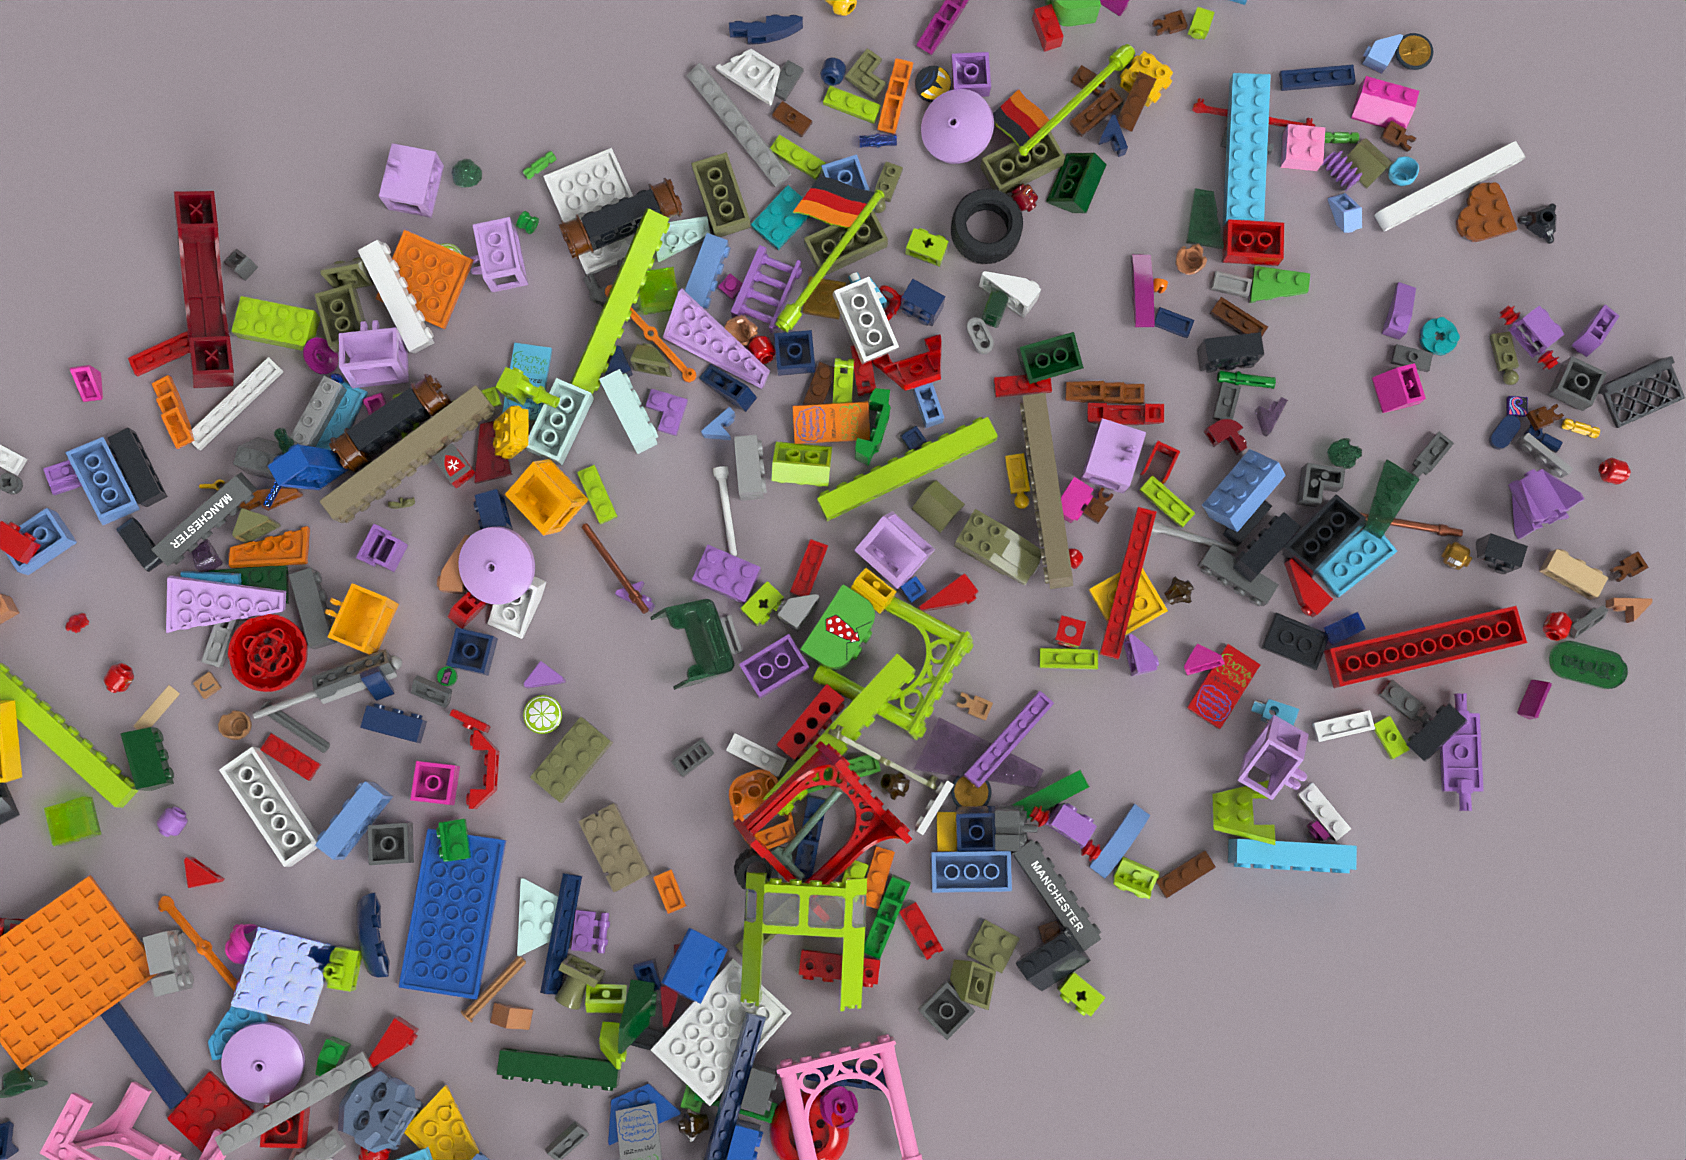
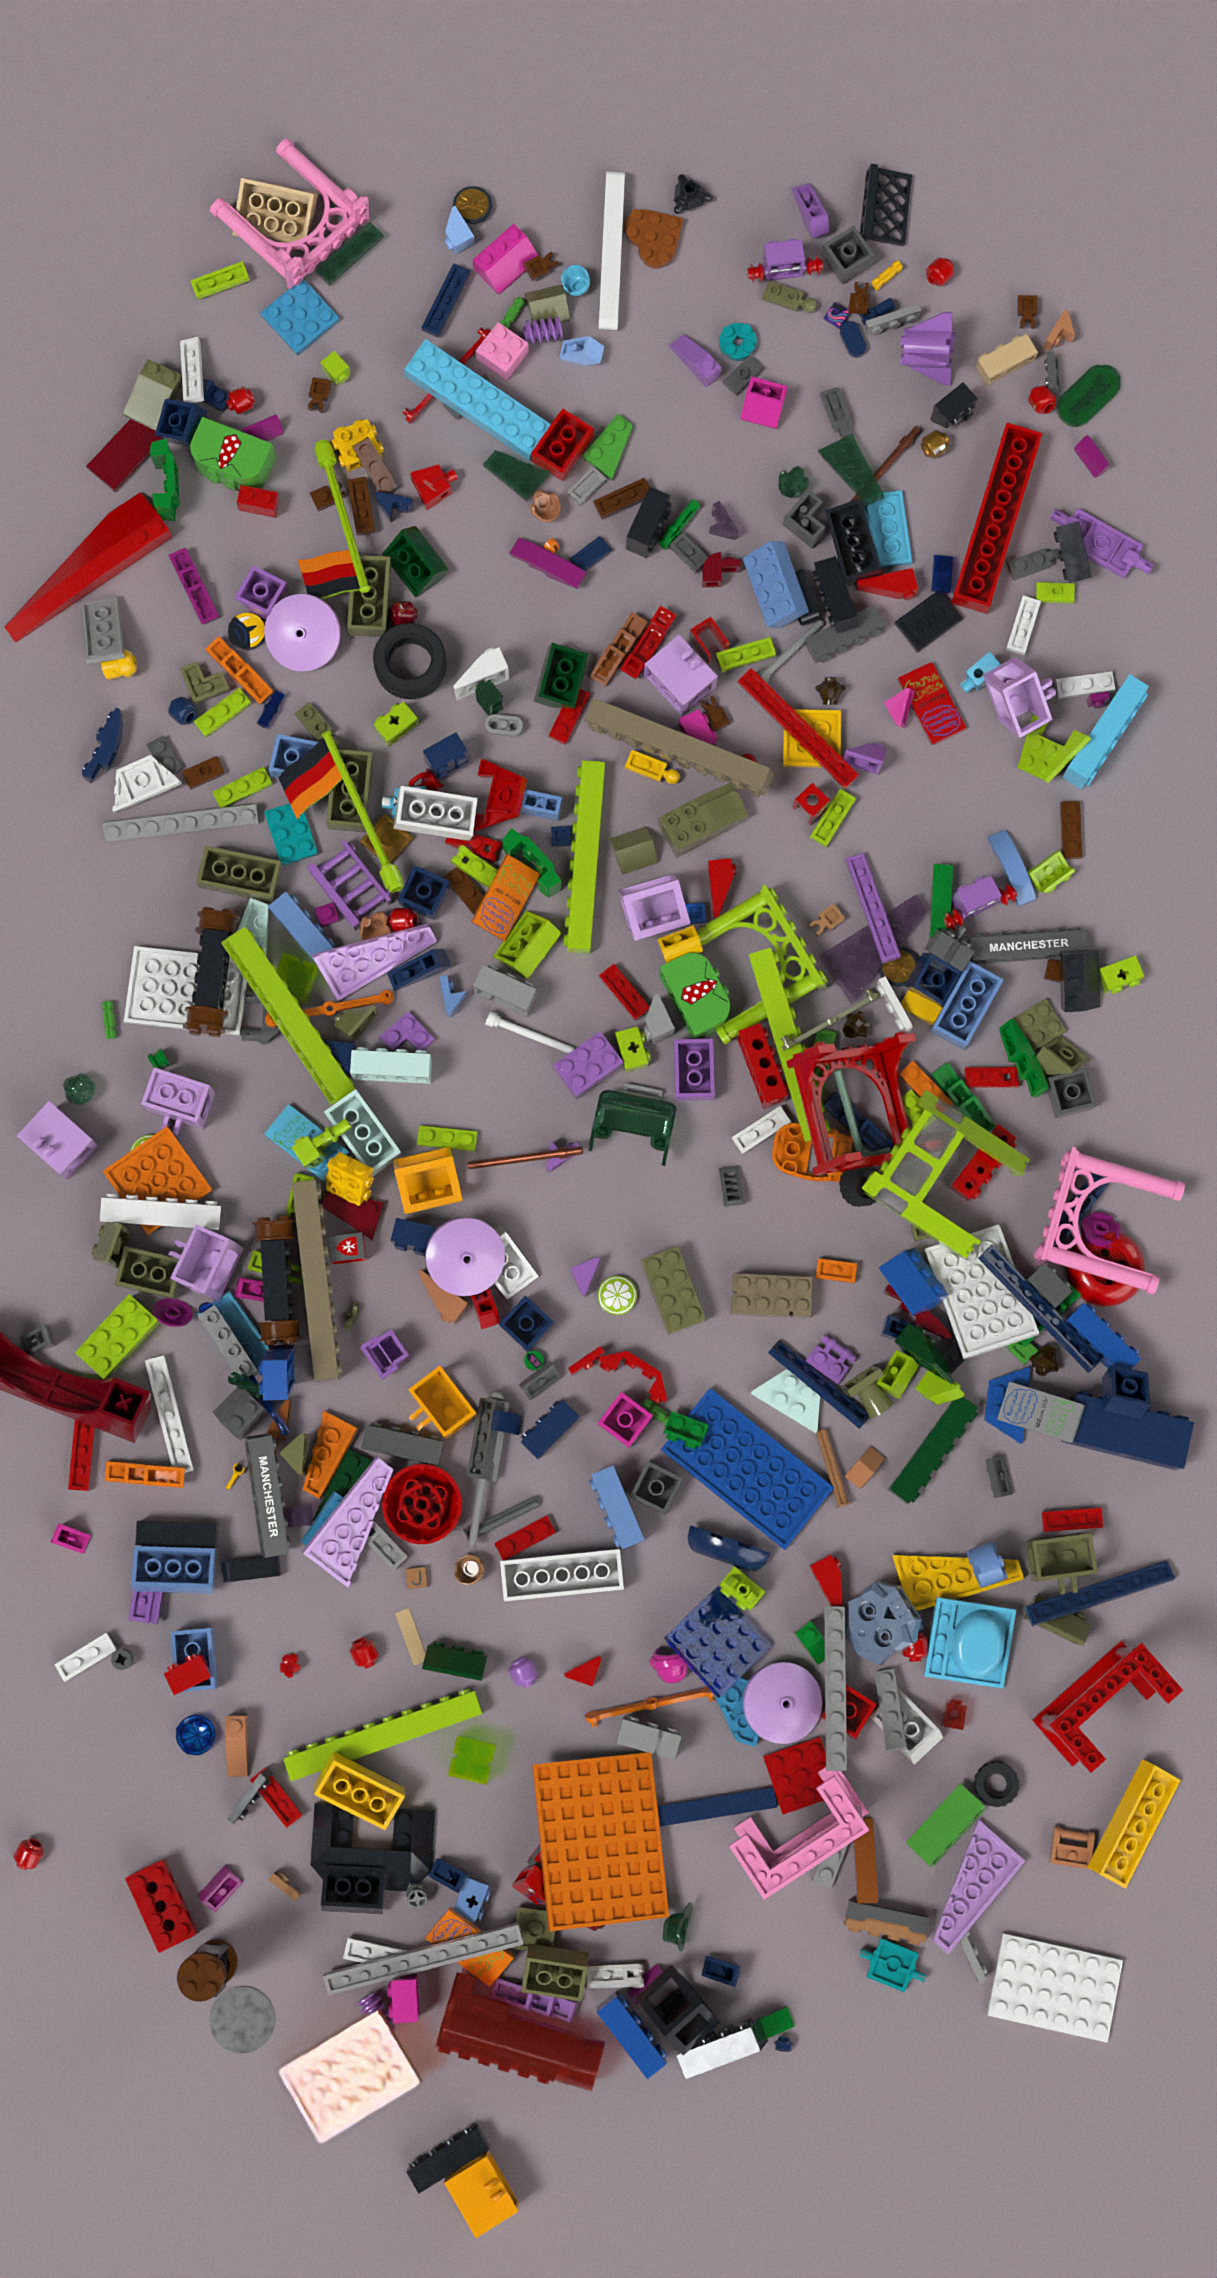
camera: 60 degrees left, 0 degrees up
(460, 804) = (658, 1413): none -> bright green axle
(957, 944) = (1022, 1054): none -> green slope
(1151, 158) = (432, 484): none -> red torso

